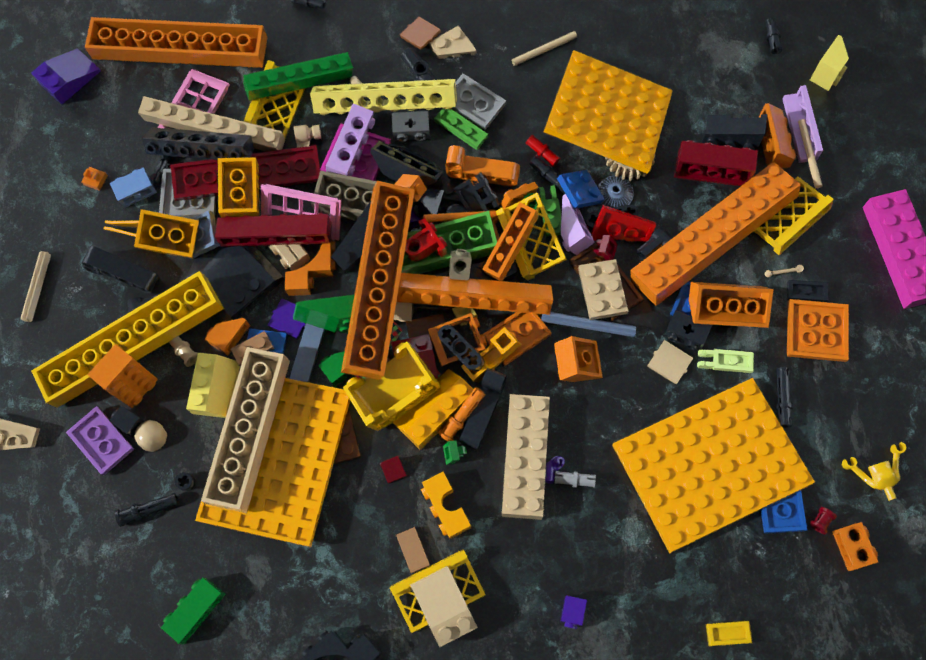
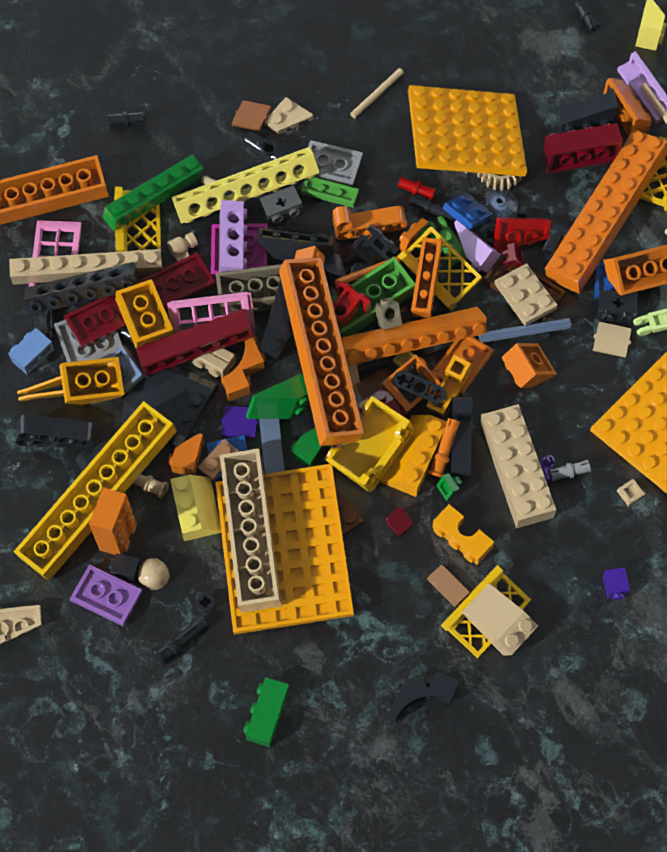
camera: 25 degrees left, 5 degrees down
(626, 522) = (631, 492): none -> tan tile

